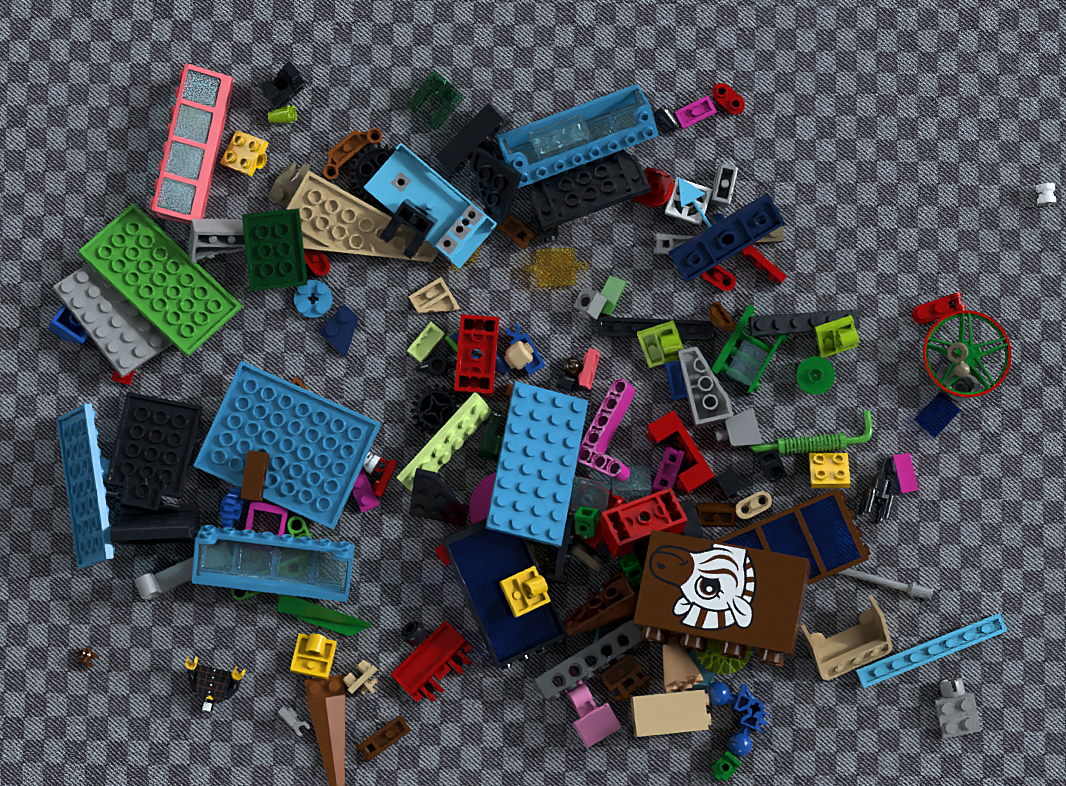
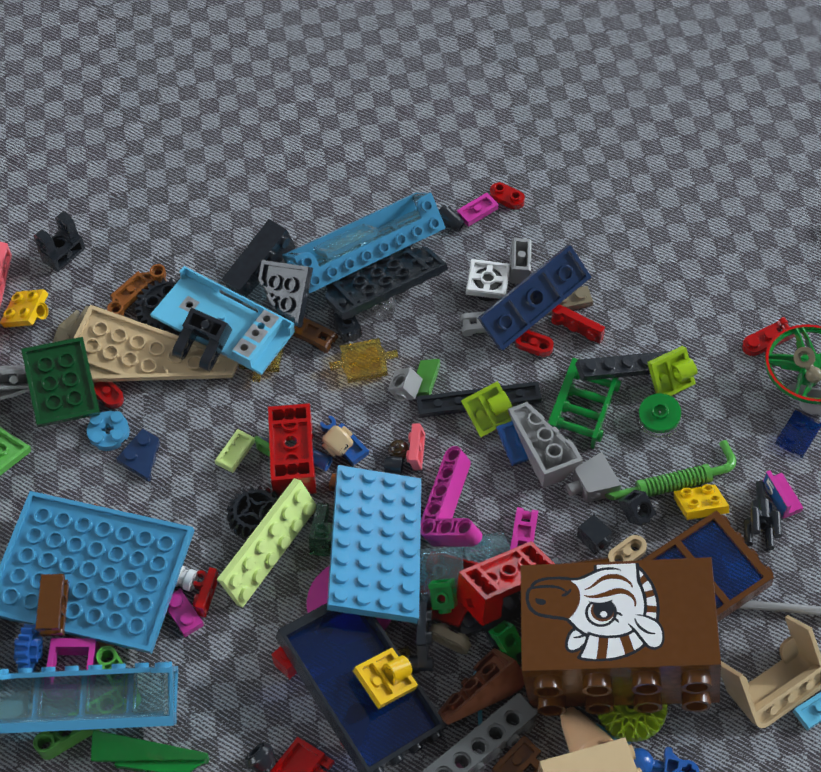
camera: 10 degrees left, 25 degrees down
(283, 115) = (62, 272): lime cone -> none
(434, 298) = (238, 408): tan wing -> none
(435, 500) = (264, 600): black plate -> none
(436, 366) = (248, 470): black piece -> none
(444, 91) = (222, 224): clear green brick -> none
(661, 188) = (453, 278): red tile -> none
(666, 428) = (556, 522): red plate -> none
(689, 194) = (489, 269): medium azure piece -> none
(720, 318) = (545, 375): reddish brown plate -> none
(746, 363) = (583, 412): clear light blue plate -> none

